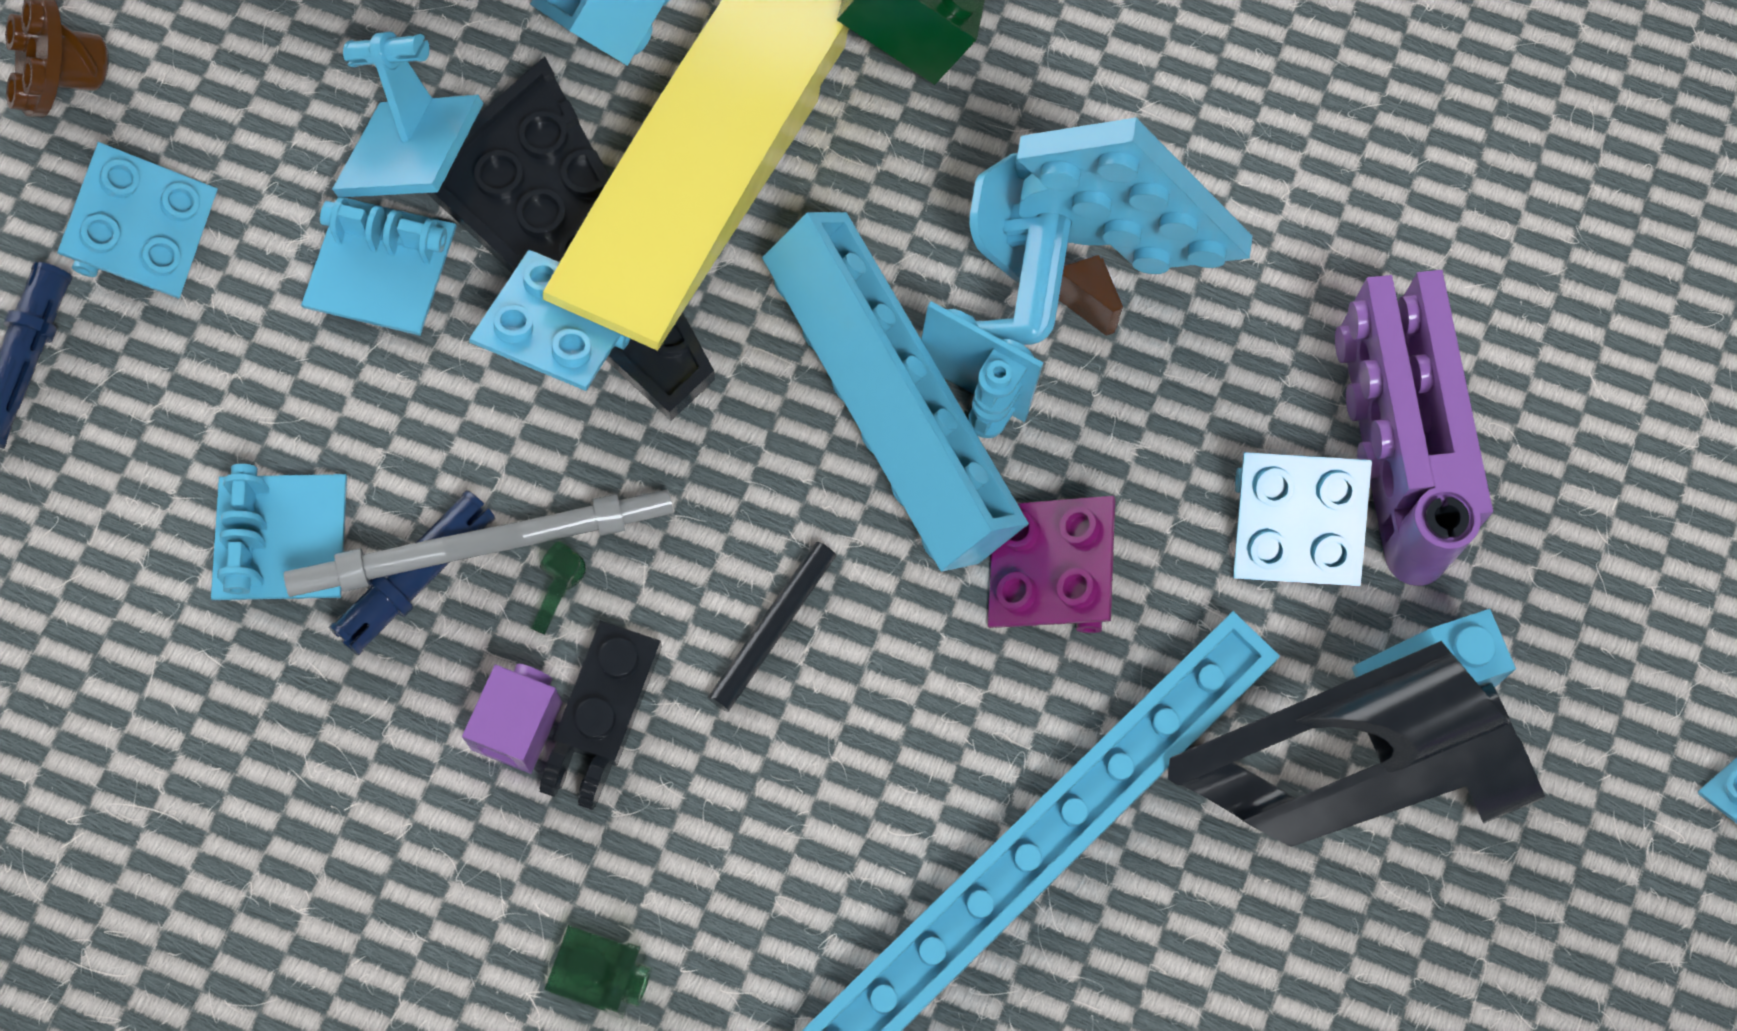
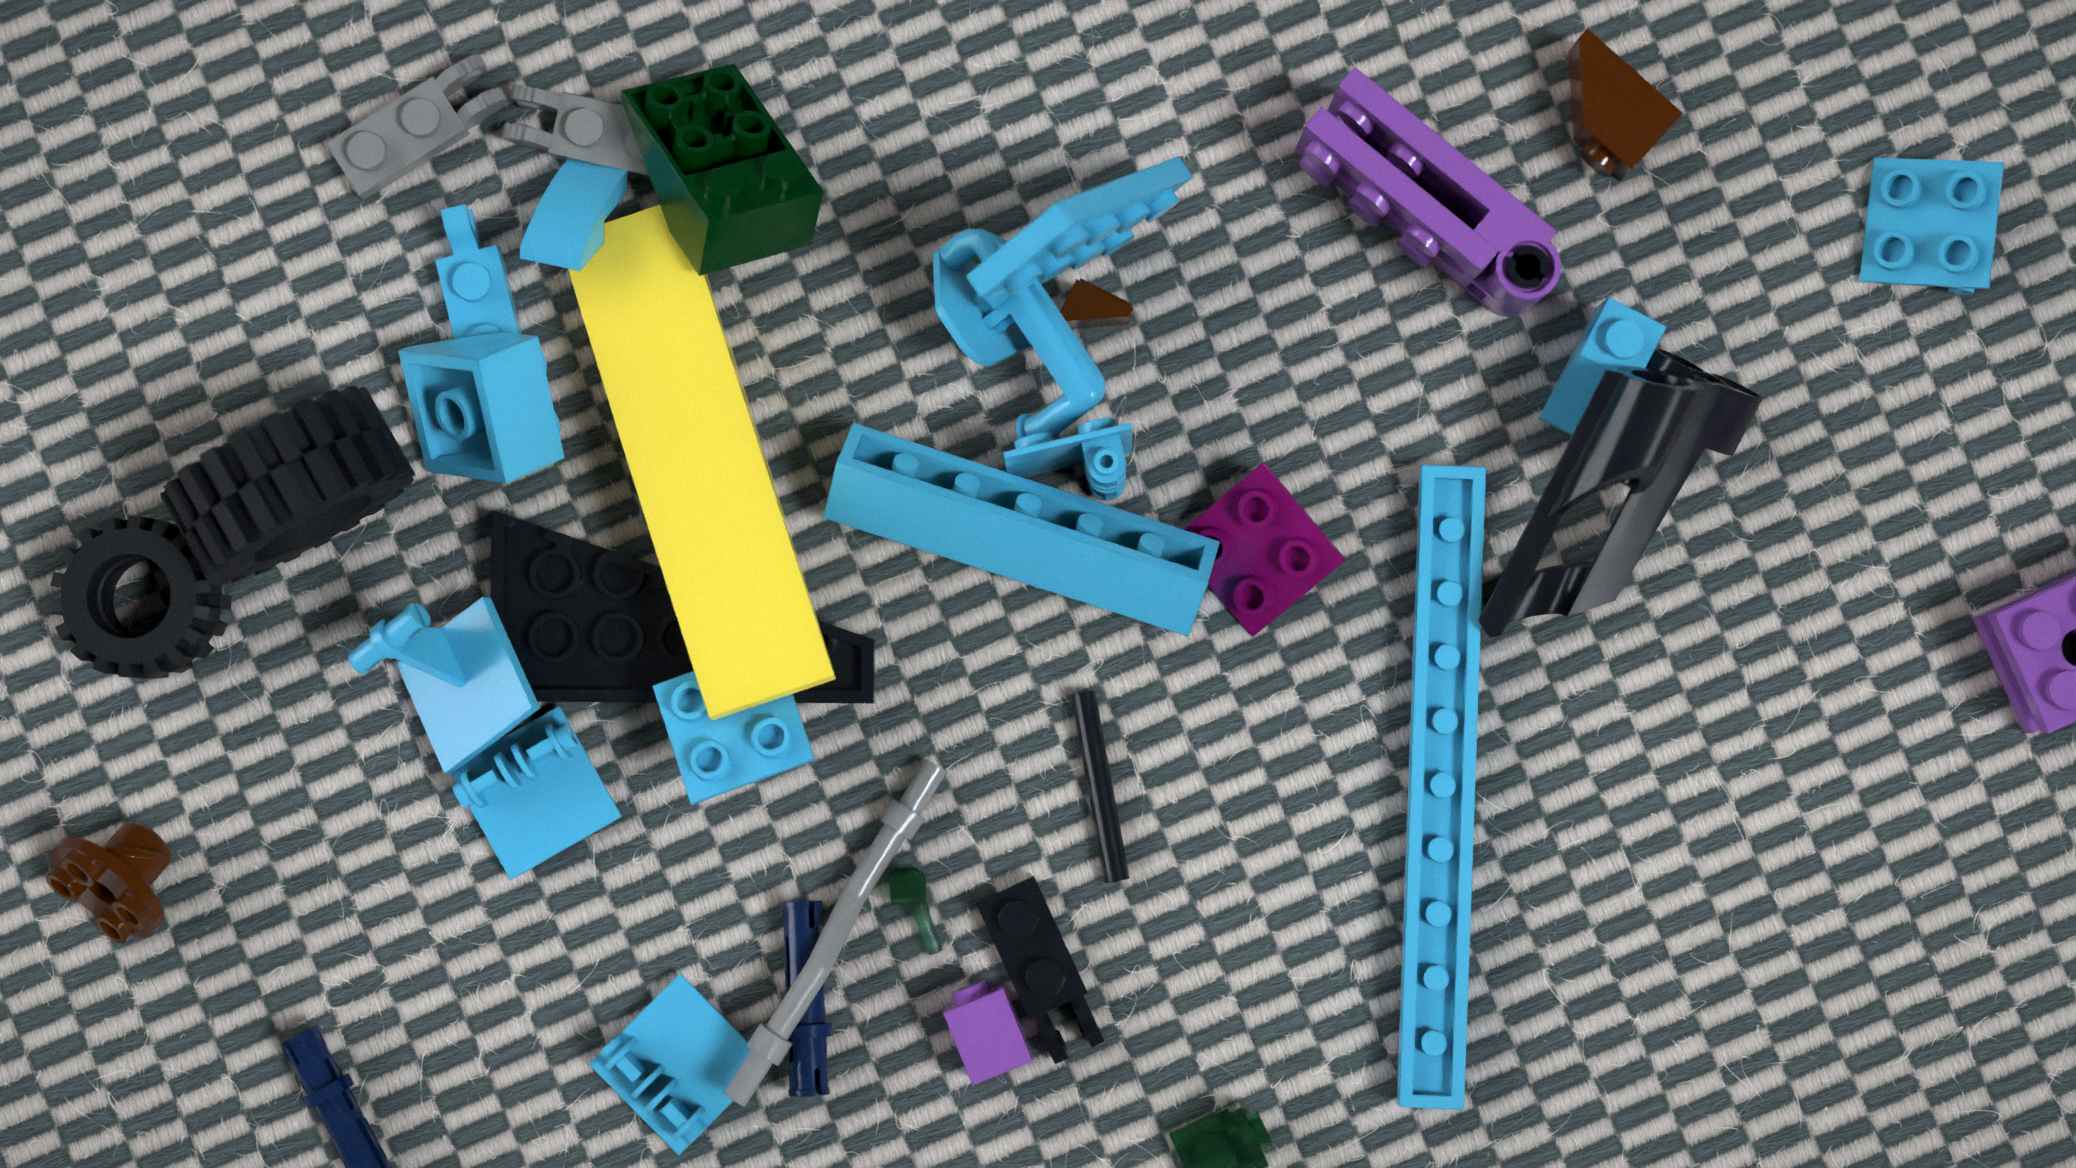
camera: 40 degrees left, 15 degrees up
(136, 221) = (319, 936): medium azure hinge -> none
(1301, 518) = (1406, 342): hinge -> none
(1614, 498) = (1613, 108): none -> reddish brown slope

